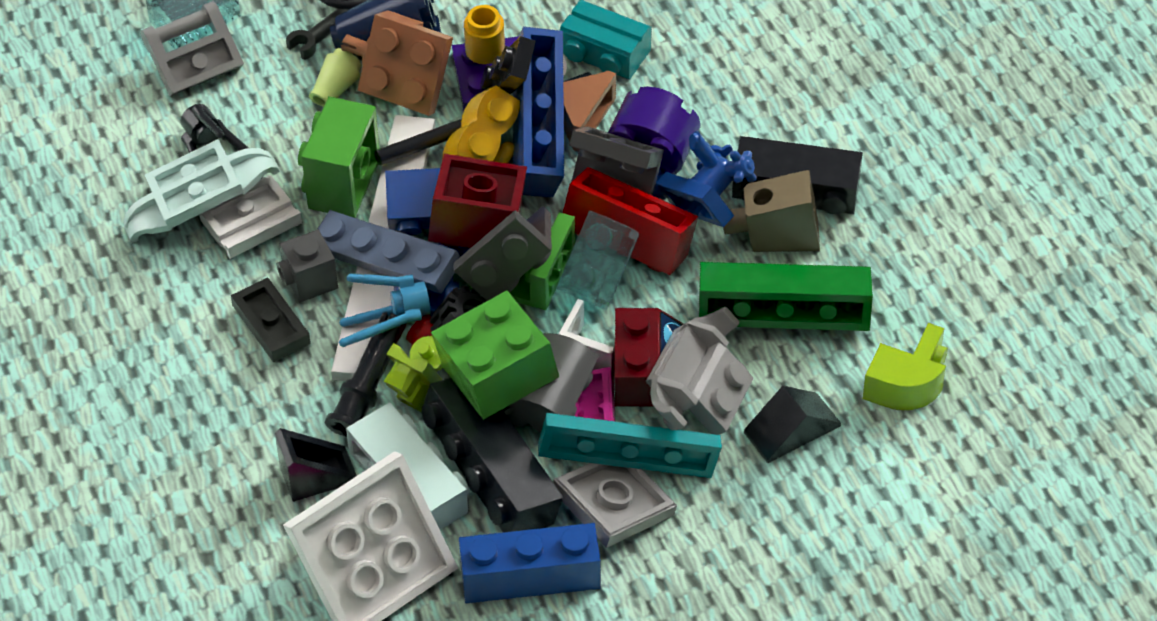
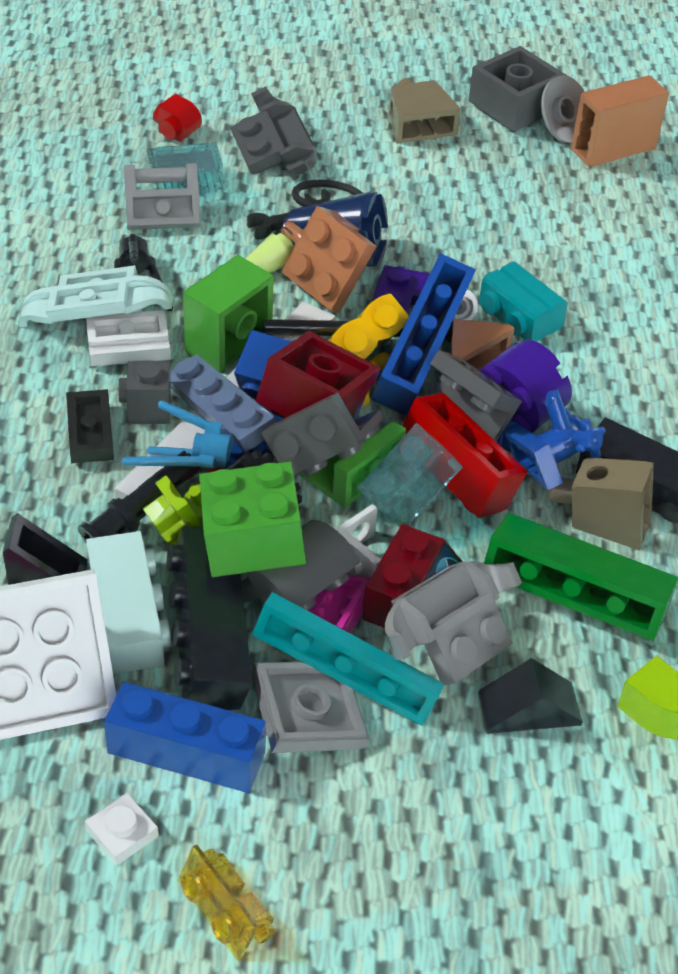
camera: 20 degrees right, 5 degrees down
(484, 34) = (409, 257): yellow brick -> none
(511, 67) = (412, 278): black plate -> none

